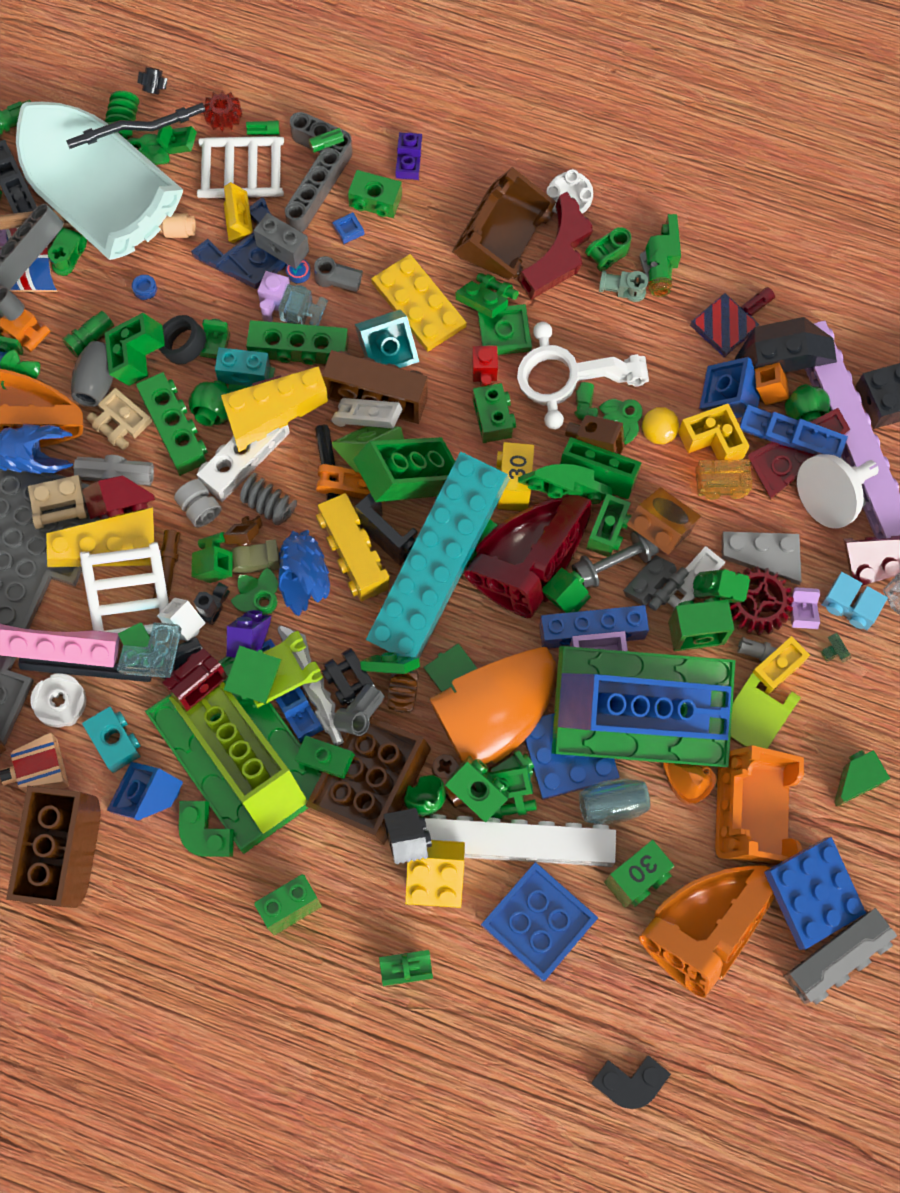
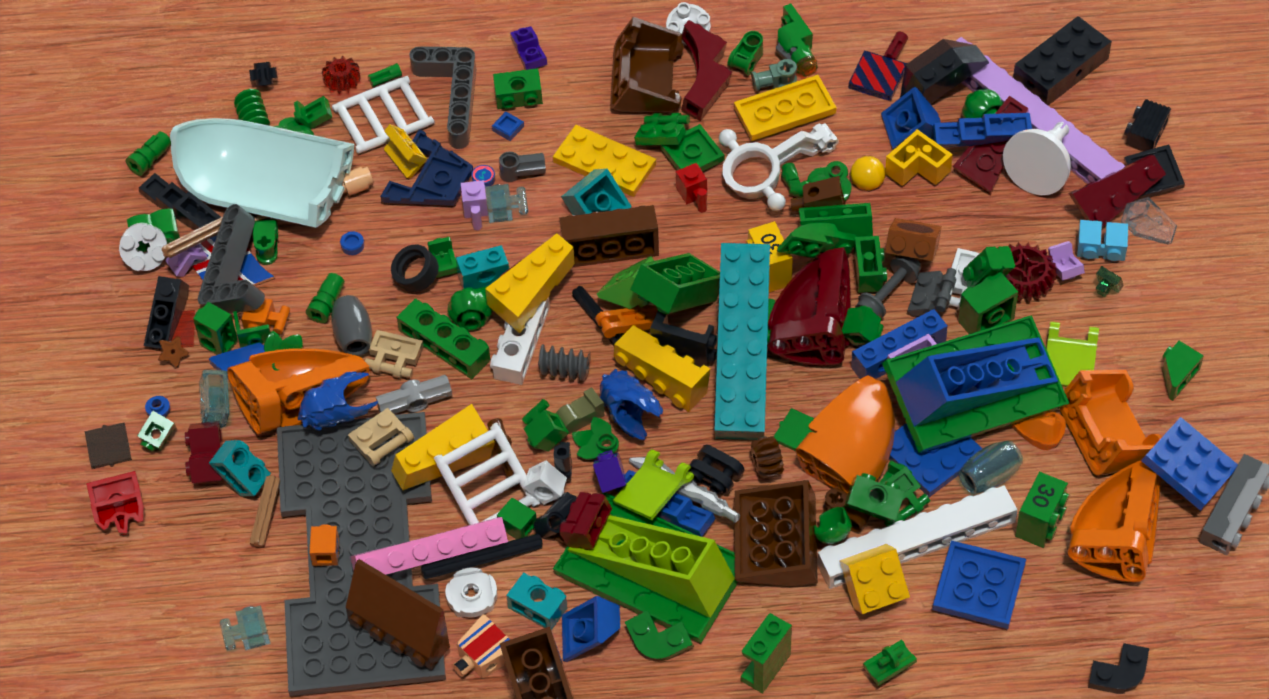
camera: 20 degrees left, 15 degrees down
(90, 136) = (243, 134): black bar -> none
(115, 497) = (434, 407): dark red slope -> none
(130, 344) = (373, 288): green brick -> none
(155, 659) = (543, 517): clear light blue plate -> none
(195, 500) = (504, 389): light grey wheel -> none
(243, 533) = (559, 394): reddish brown plate -> none
(252, 674) = (635, 493): green piece -> none
(281, 240) = (460, 154): dark grey brick -> none
(288, 334) = (518, 230): green brick -> none
(324, 757) = (733, 532): green plate -> none
(326, 140) = (453, 60): green piece -> none
(356, 716) = (742, 487): dark grey piece -> none
(367, 413) = (612, 260): white plate -> none
(390, 663) = (746, 436): green plate -> none
(407, 835) = (837, 551): black brick -> none
(493, 413) = (720, 218): green brick -> none
(617, 321) = (785, 107): none -> yellow plate
(723, 478) = (943, 191): clear yellow brick -> none
(755, 649) = (1051, 308): light grey pin -> none
(764, 550) = (1009, 230): light grey wing -> none
(772, 383) = (944, 102): orange brick -> none
(781, 664) = (1070, 309): yellow panel -> none

